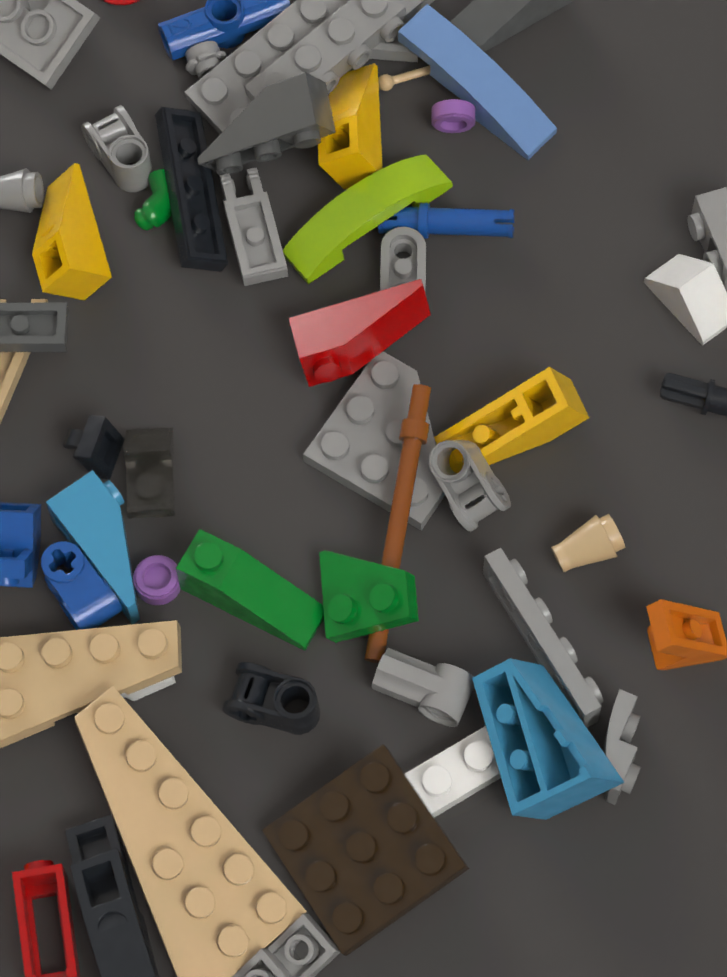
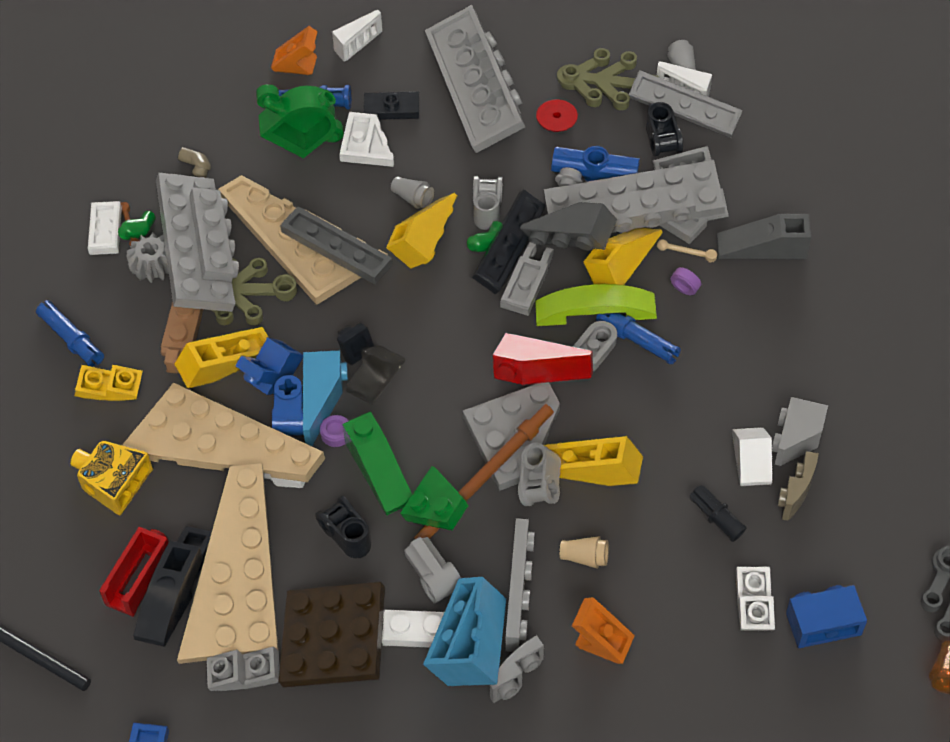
camera: 35 degrees right, 10 degrees down
(478, 79) = (713, 270): medium blue slope -> none

